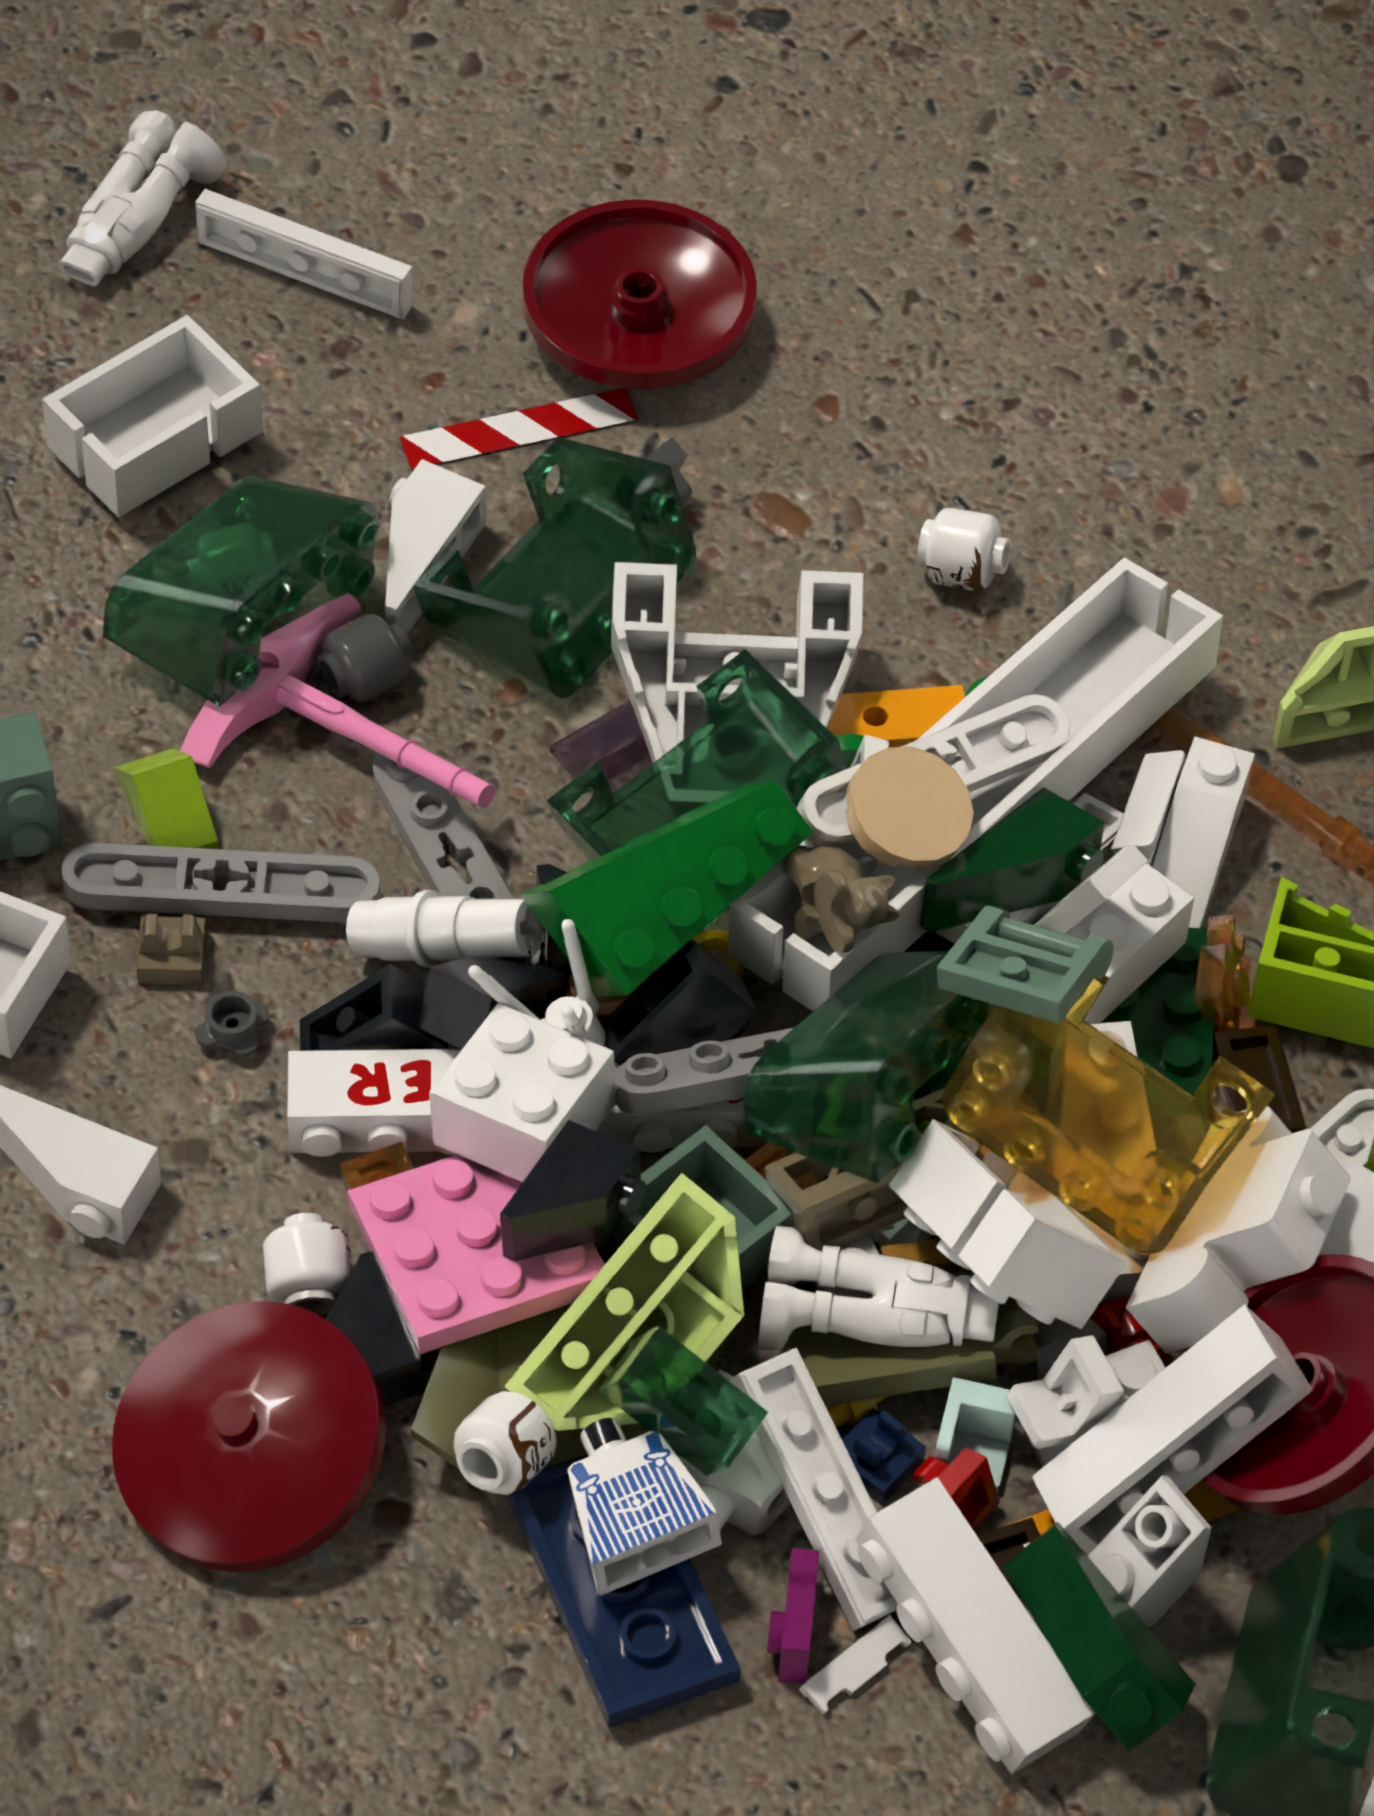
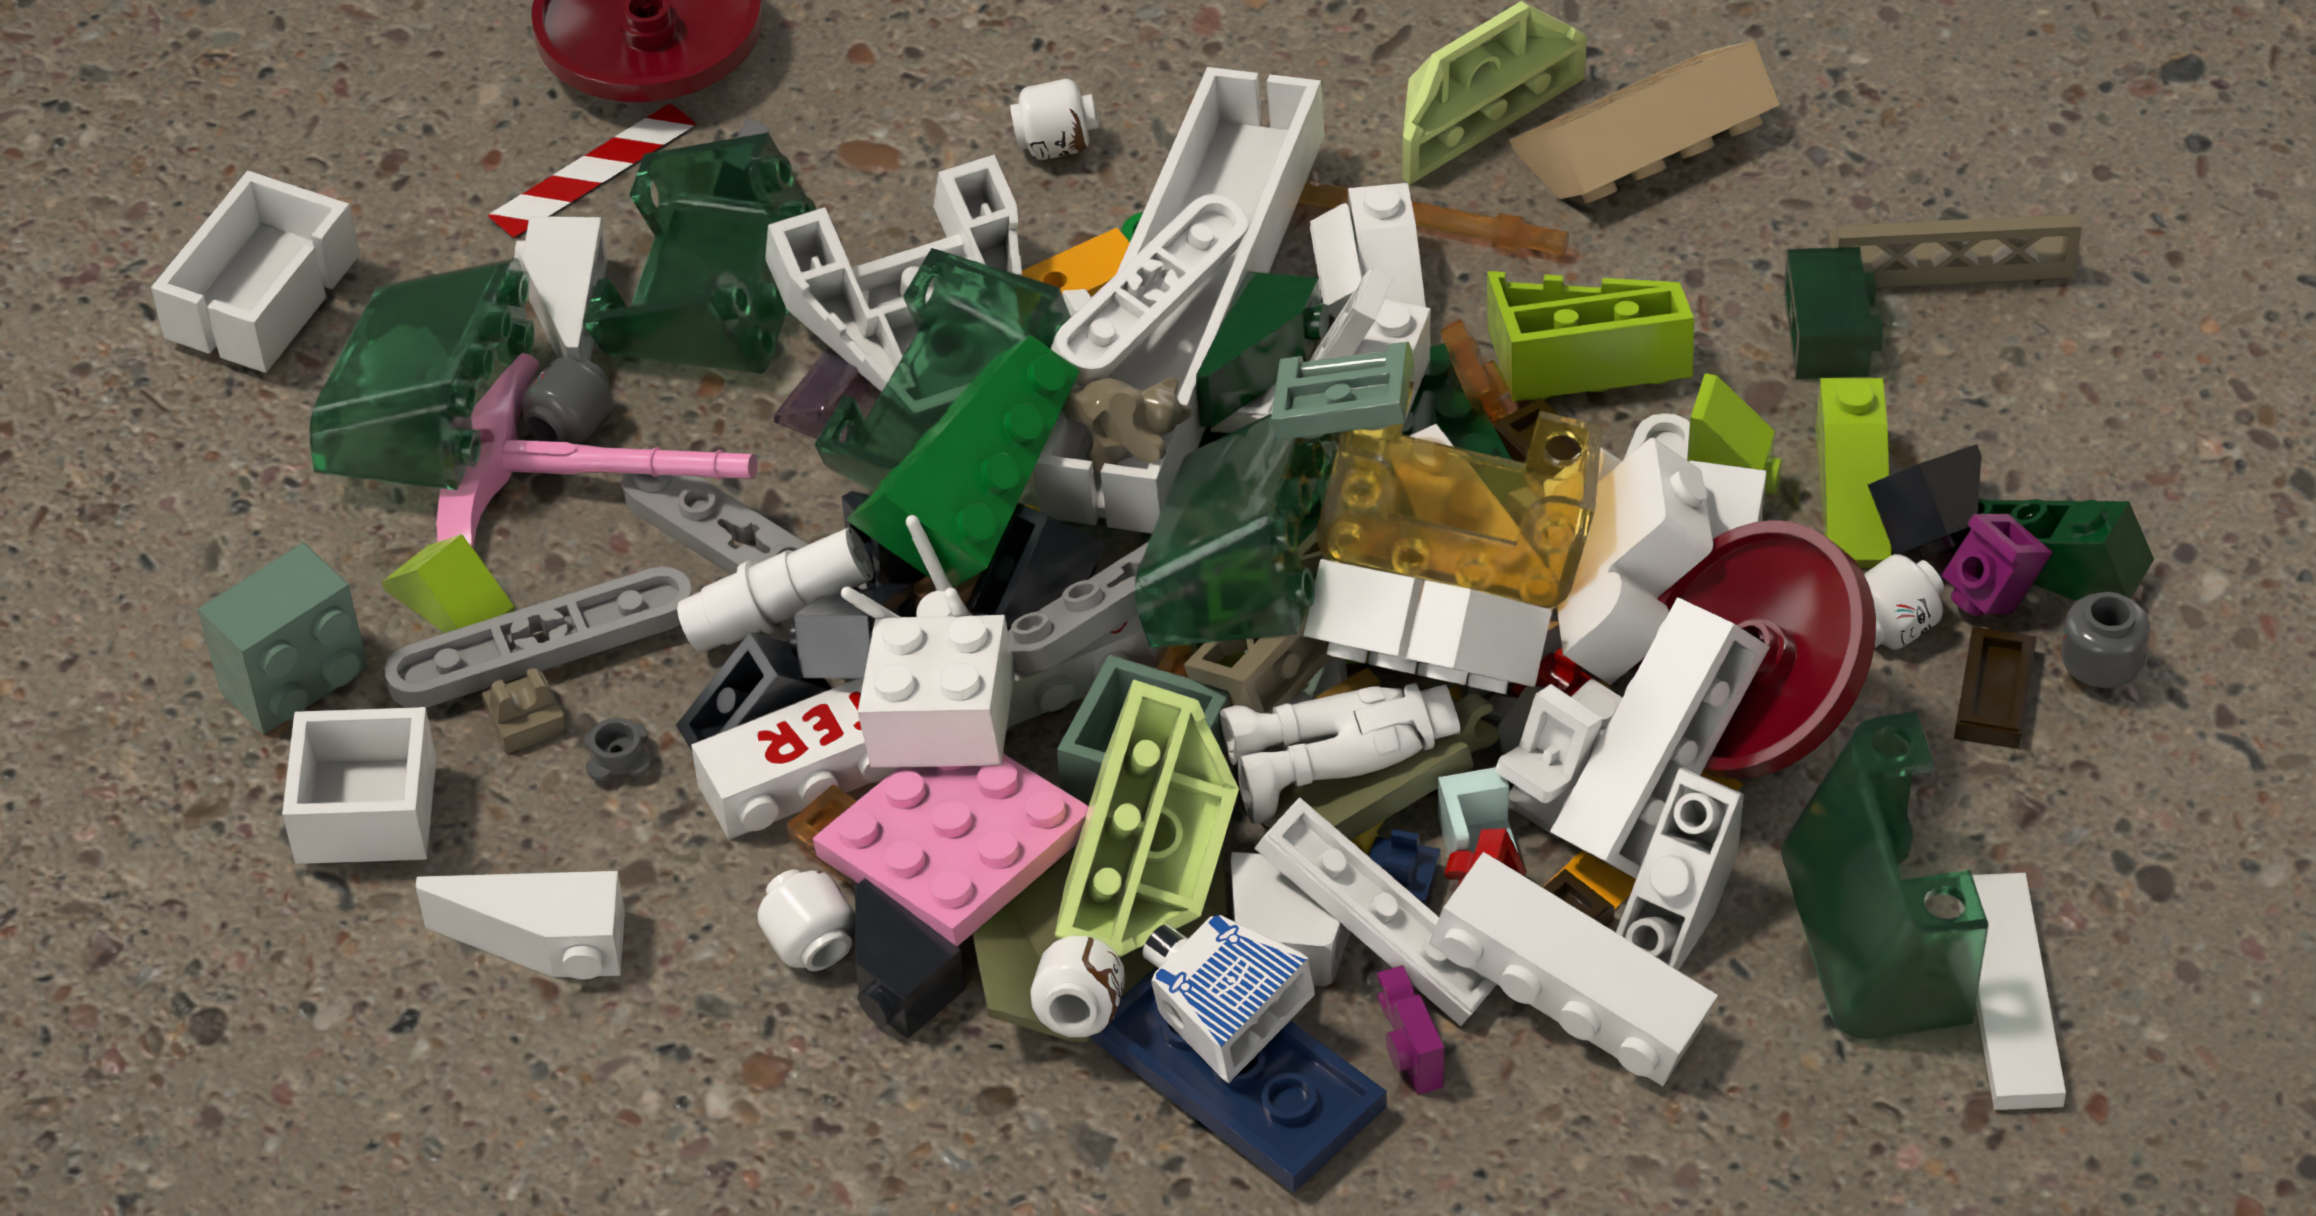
camera: 20 degrees left, 5 degrees down
(122, 221) = (125, 126): white piece -> none
(248, 1436) = (837, 1079): dark red dish -> none
(304, 254) = (316, 92): white tile -> none
(572, 1194) = (1032, 749): black slope -> none
(683, 1400) = (1228, 872): clear green brick -> none
(855, 1664) = (1478, 1052): white piece -> none
(908, 808) = (1151, 321): tan tile -> none
(1099, 1638) = (1686, 931): dark green slope -> none

